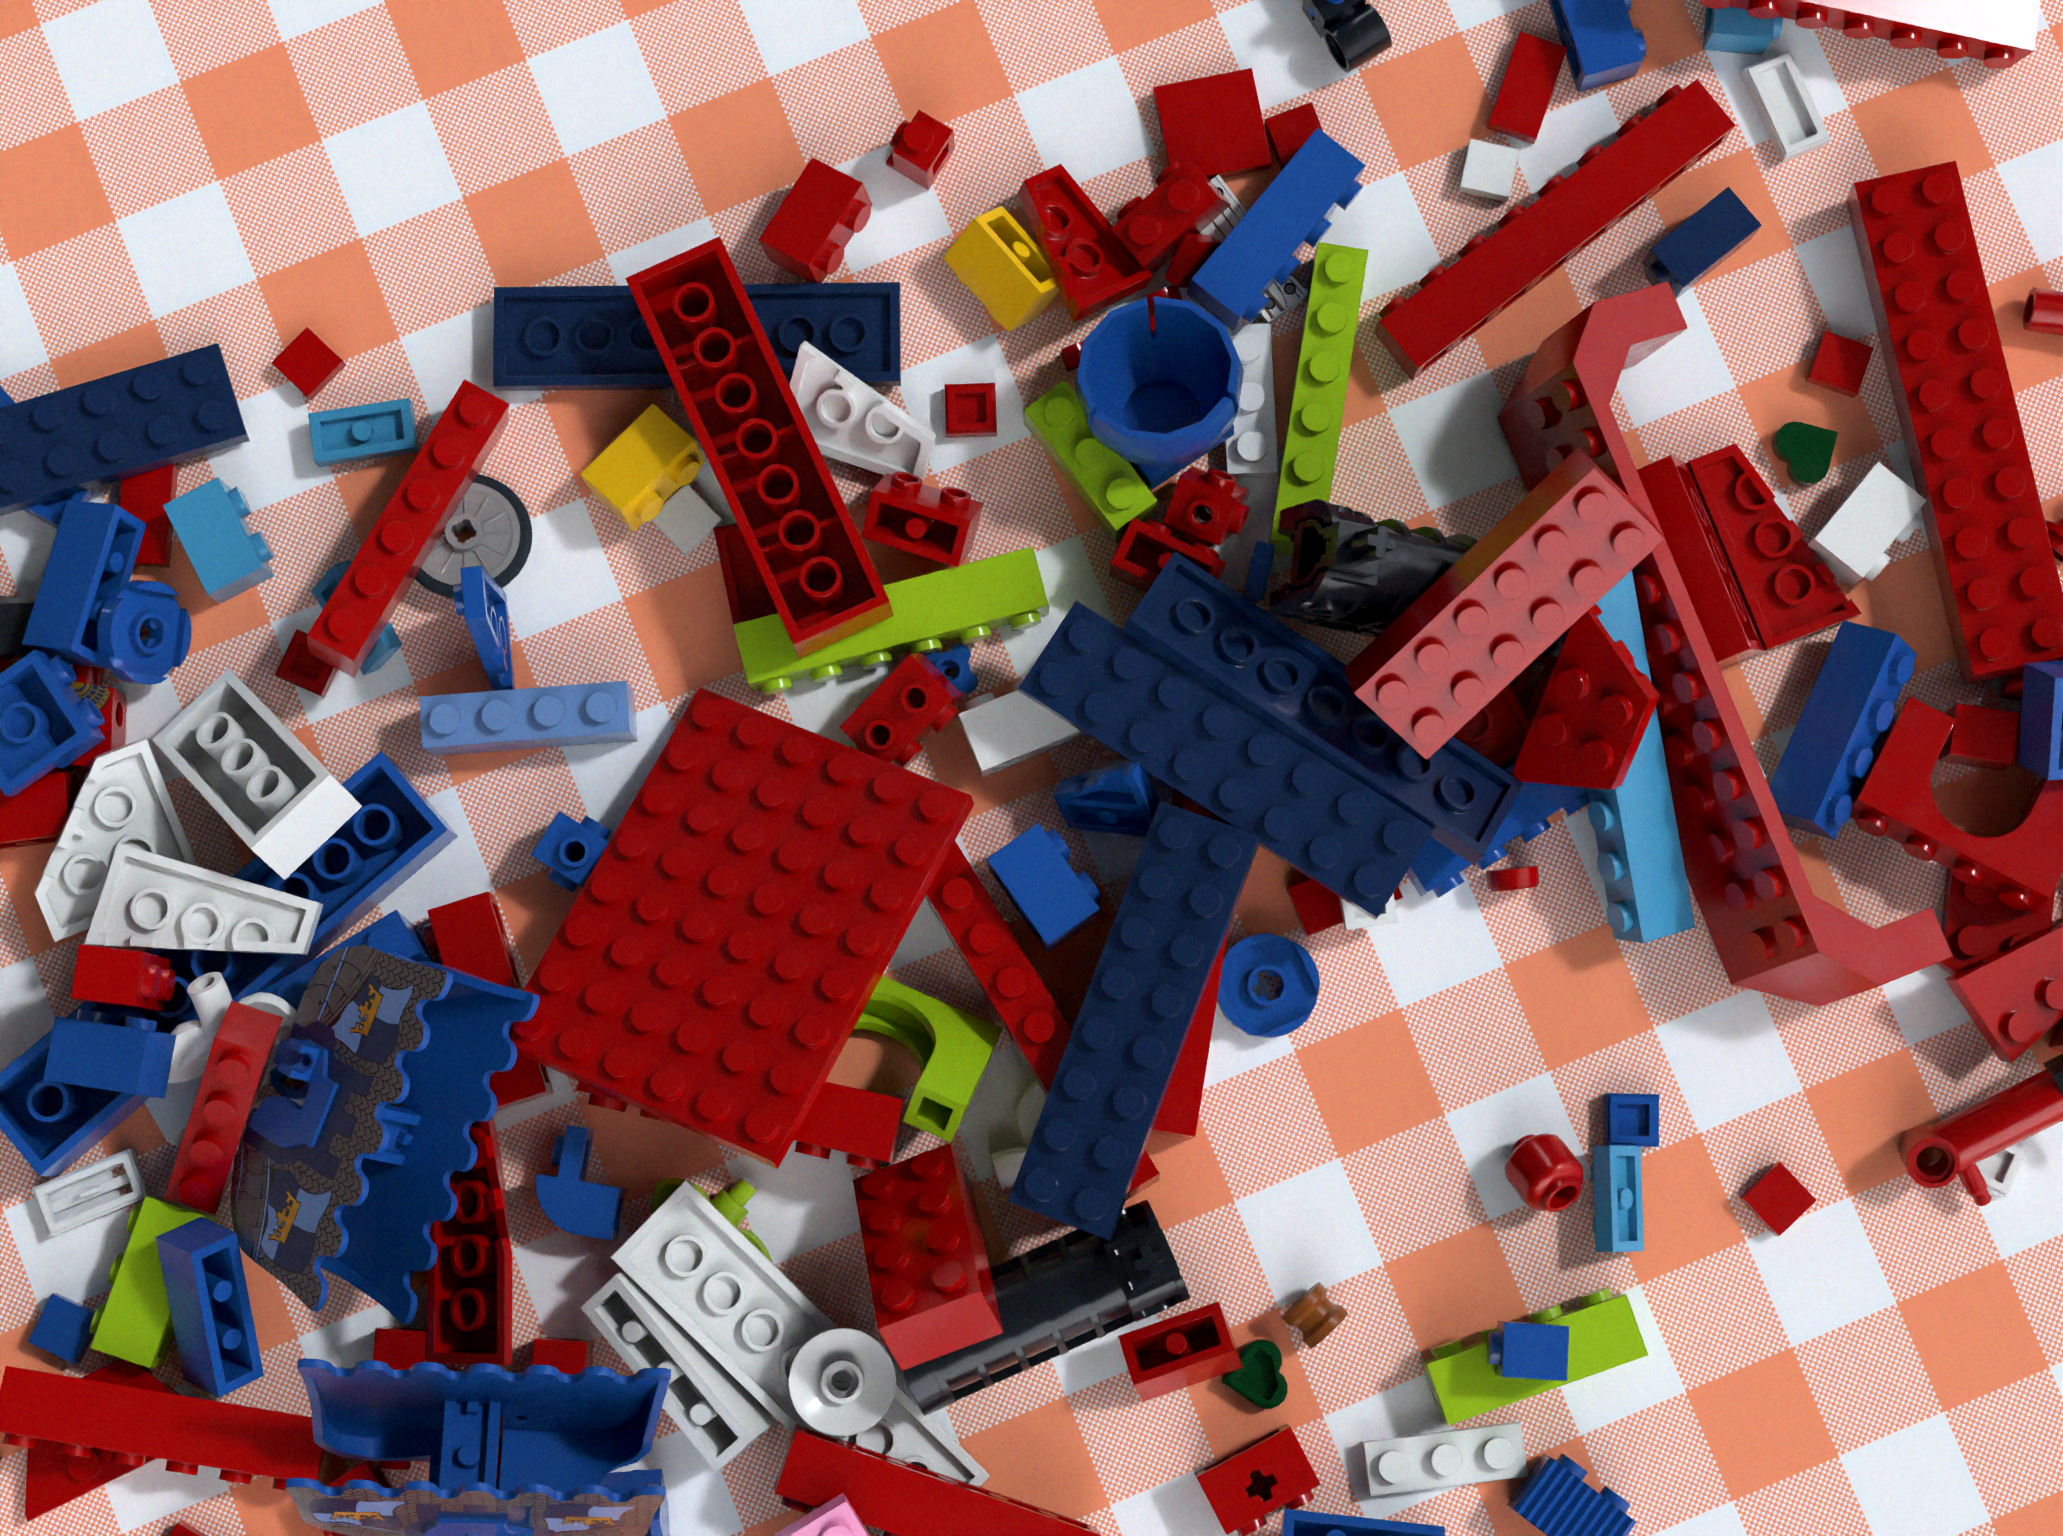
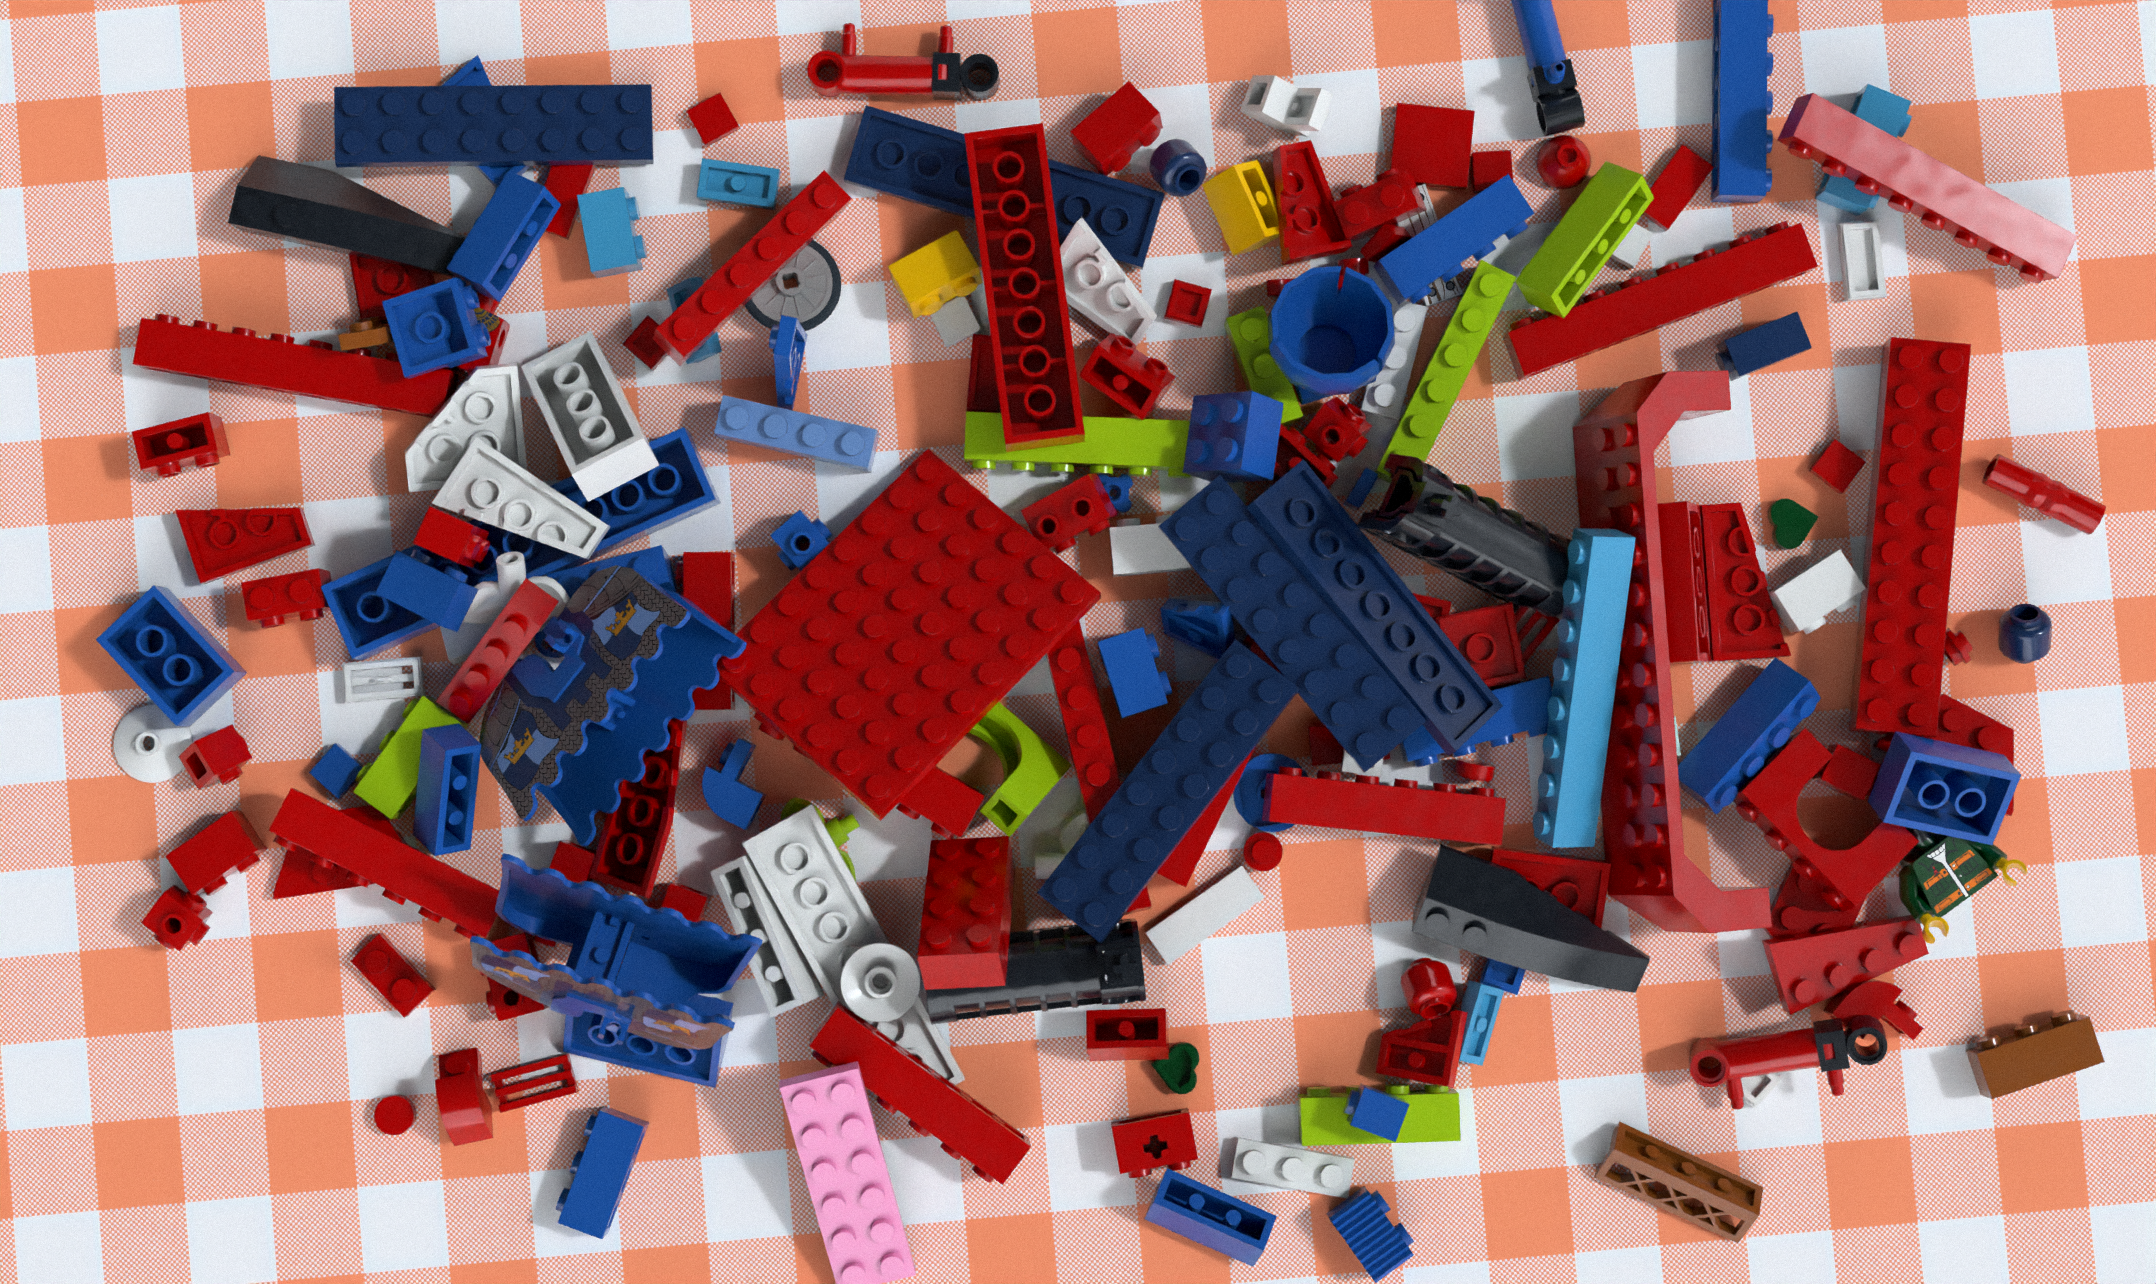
camera: 15 degrees right, 5 degrees up
(120, 625) = (519, 280): blue plate -> none
(566, 227) = (903, 75): none -> red piece
(906, 245) = (1178, 167): none -> dark blue head
(921, 149) = (1211, 97): red brick -> none
(1017, 132) = (1285, 105): none -> white brick
(1078, 550) = (1233, 437): none -> blue brick
(1230, 1168) = (1204, 915): none -> white tile
(1279, 1064) = (1262, 851): none -> red plate
(1314, 1315) = (1231, 1038): dark orange wheel -> none
(1381, 97) = (1563, 161): none -> red brick
(1414, 960) = (1384, 808): none -> red brick
(1437, 179) = (1584, 239): none -> lime brick
(1502, 604) = (1527, 576): brick -> none
(1565, 1255) = (1424, 1051): none -> red wing
(1588, 713) = (1565, 671): red wing -> none
(1630, 1054) = (1515, 923): none -> black wedge
(1660, 991) = (1574, 880): none -> red wing
(1777, 1199) = (1590, 1058): red tile -> none
(1948, 1314) = (1685, 1179): none -> dark orange fence

